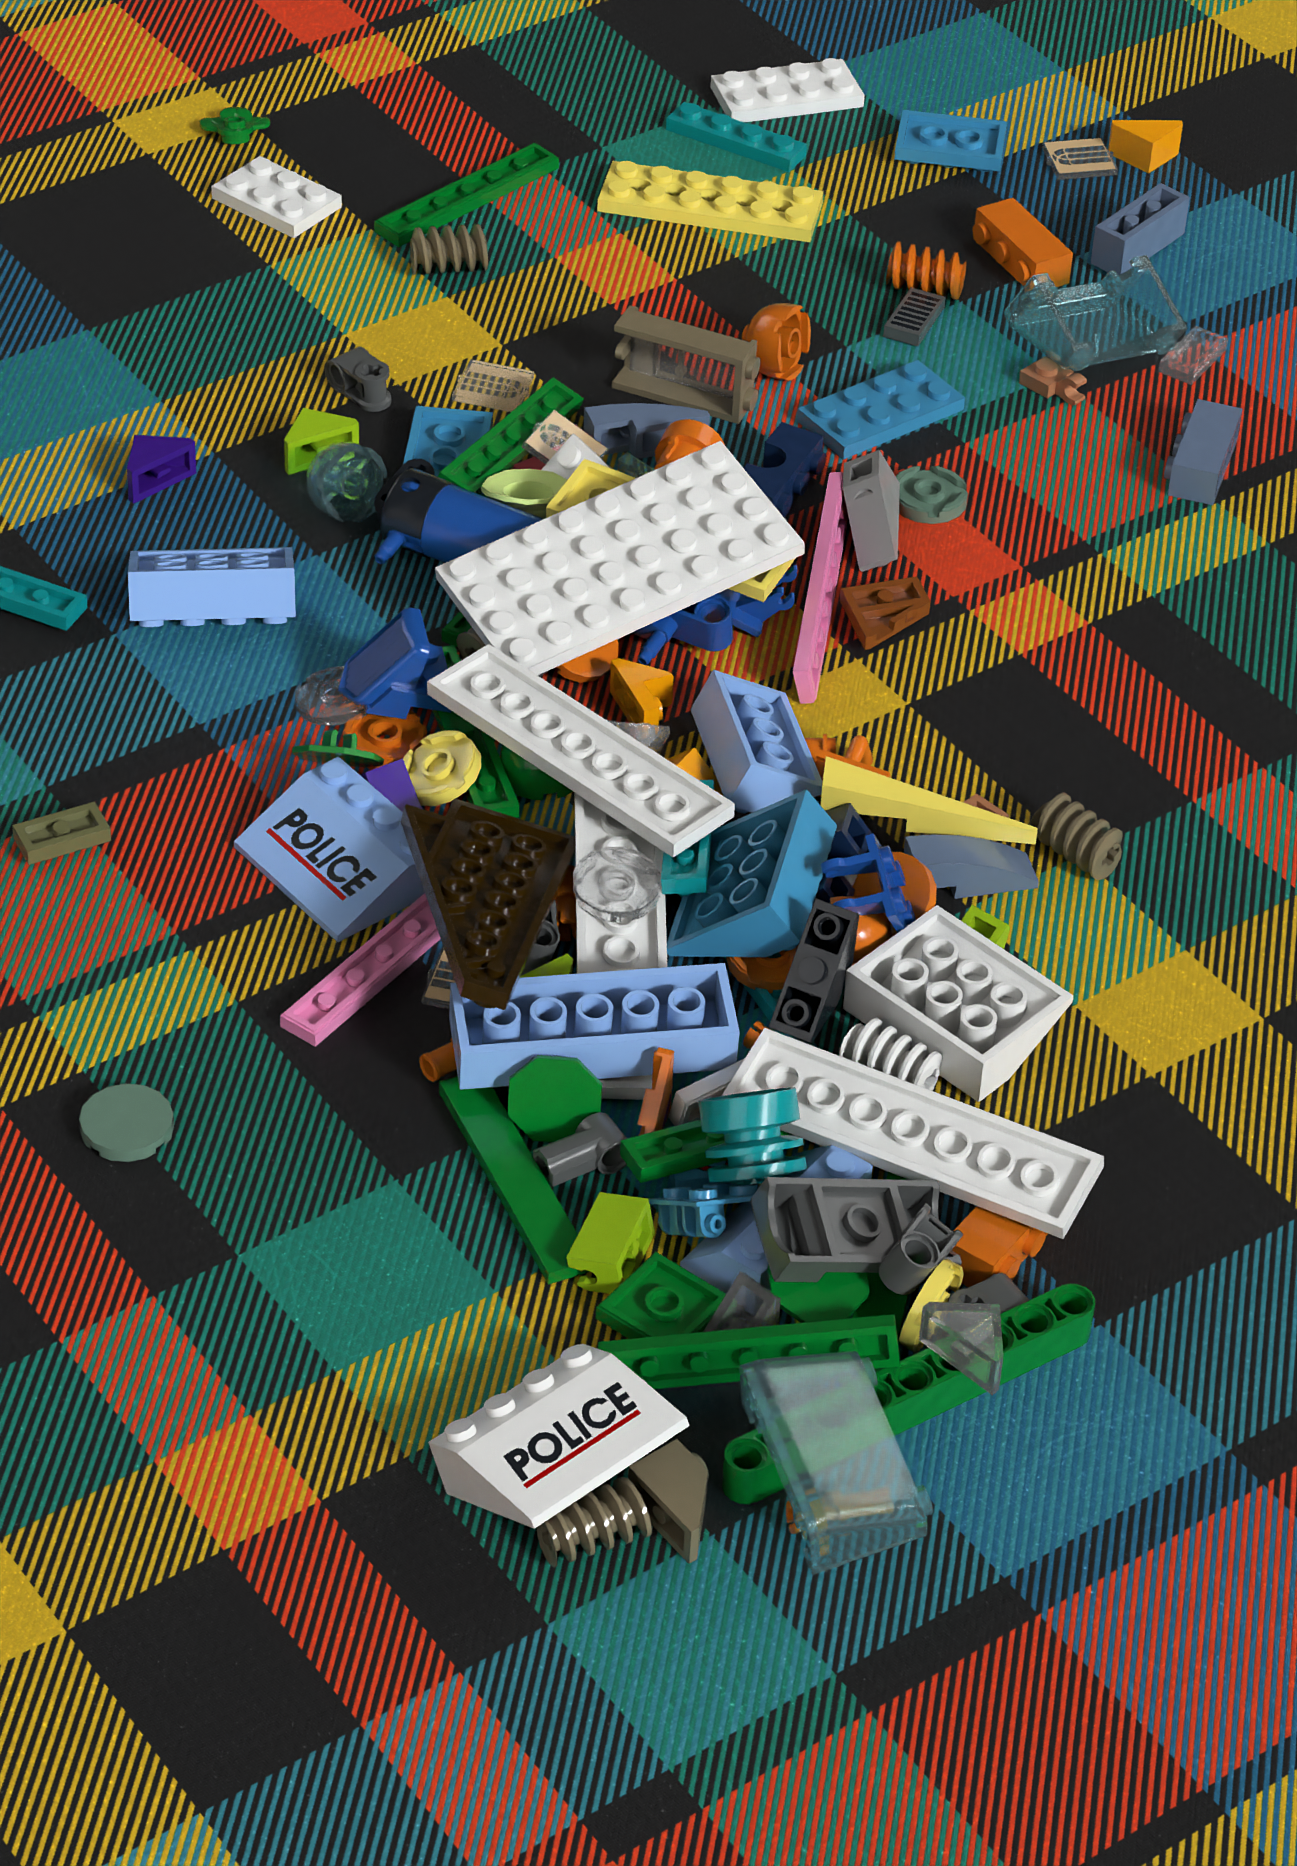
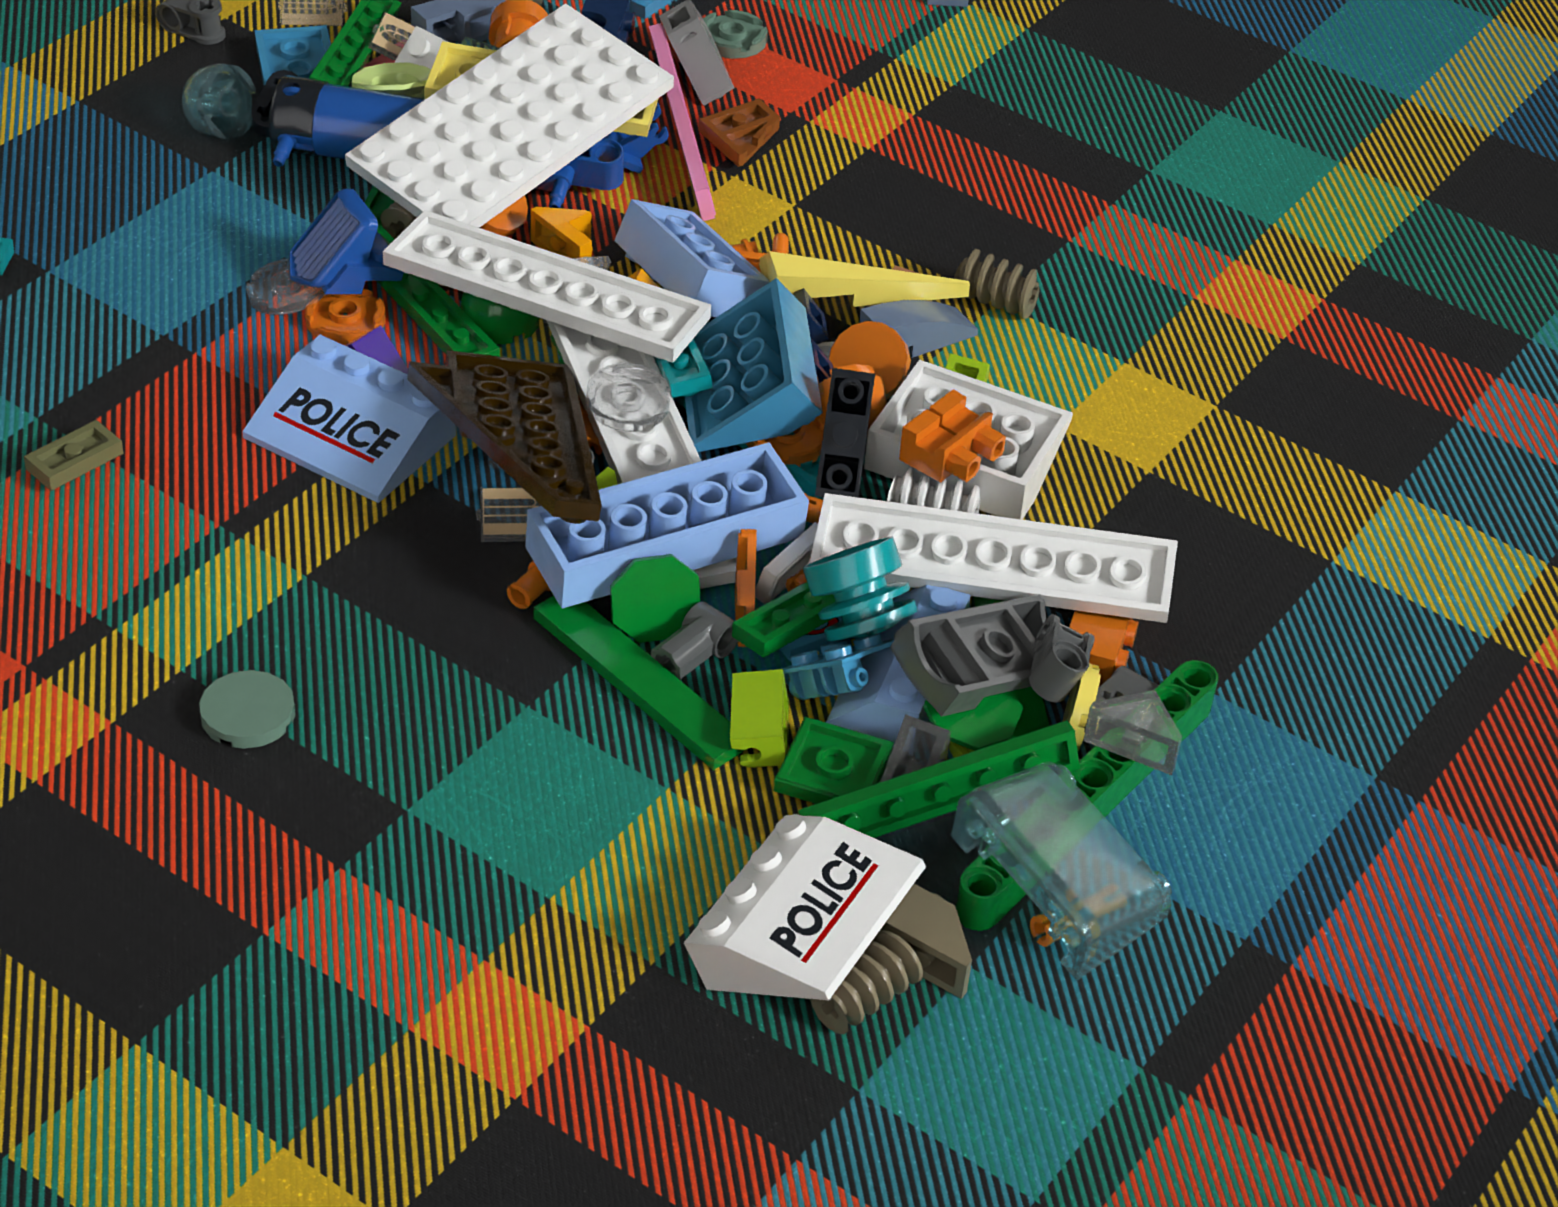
camera: 20 degrees left, 0 degrees up
(158, 464) = (35, 115): dark purple slope -> none
(211, 586) = (129, 211): light blue slope -> none
(313, 433) = (172, 68): lime slope -> none
(329, 751) = (306, 332): green piece -> none
(362, 974) = (422, 518): bright pink tile -> none
(443, 767) = (417, 327): light yellow tile -> none
(891, 879) = (867, 331): blue plate -> none
(918, 997) = (949, 439): none -> orange hips

